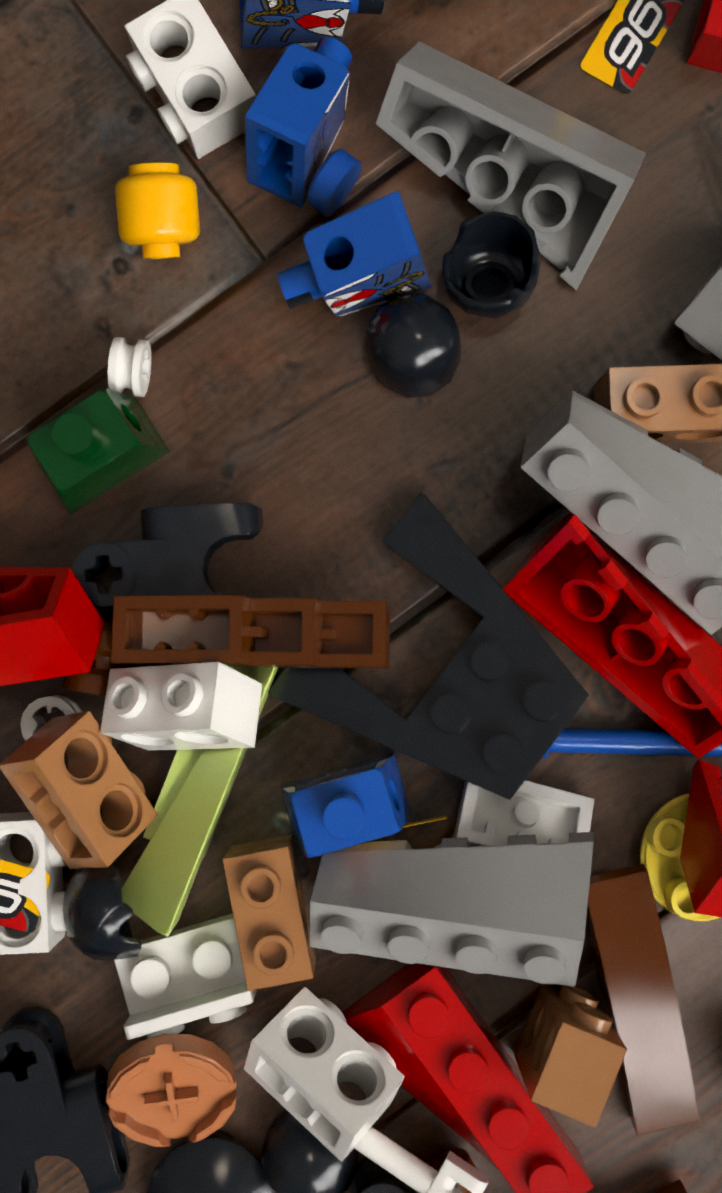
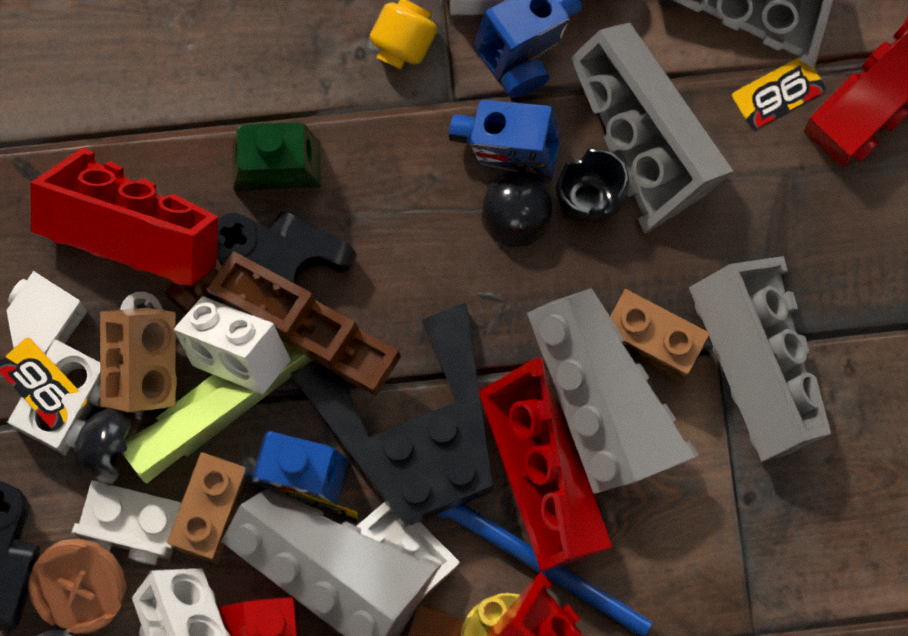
camera: 30 degrees right, 10 degrees down
(129, 366) = (327, 119): white bush -> none

